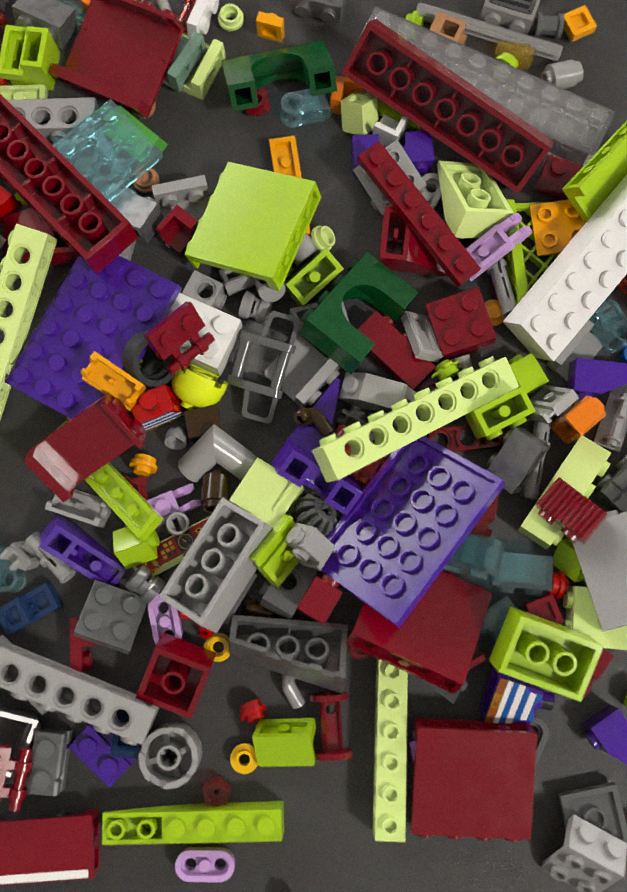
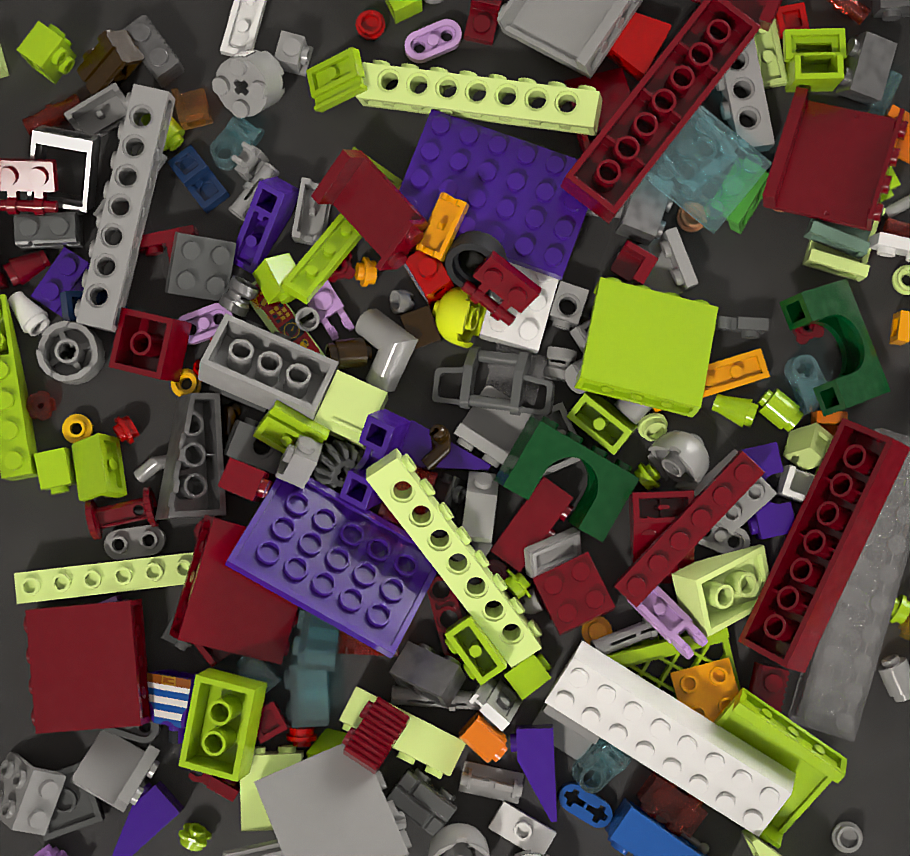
camera: 80 degrees right, 5 degrees up
(81, 788) = (25, 267): none -> dark red cone
(127, 791) = (29, 315): none -> white cone
(249, 146) = (747, 326): none -> dark grey plate
(281, 785) = (55, 470): none -> lime brick
(319, 165) = (738, 410): none -> lime cone
(324, 132) = (780, 409): none -> lime brick
(355, 217) = (681, 458): none -> light grey cylinder
(359, 717) = (134, 542): none -> light grey plate
(364, 246) = (648, 476): none -> lime plate
(573, 764) = (115, 770): none -> light grey bracket

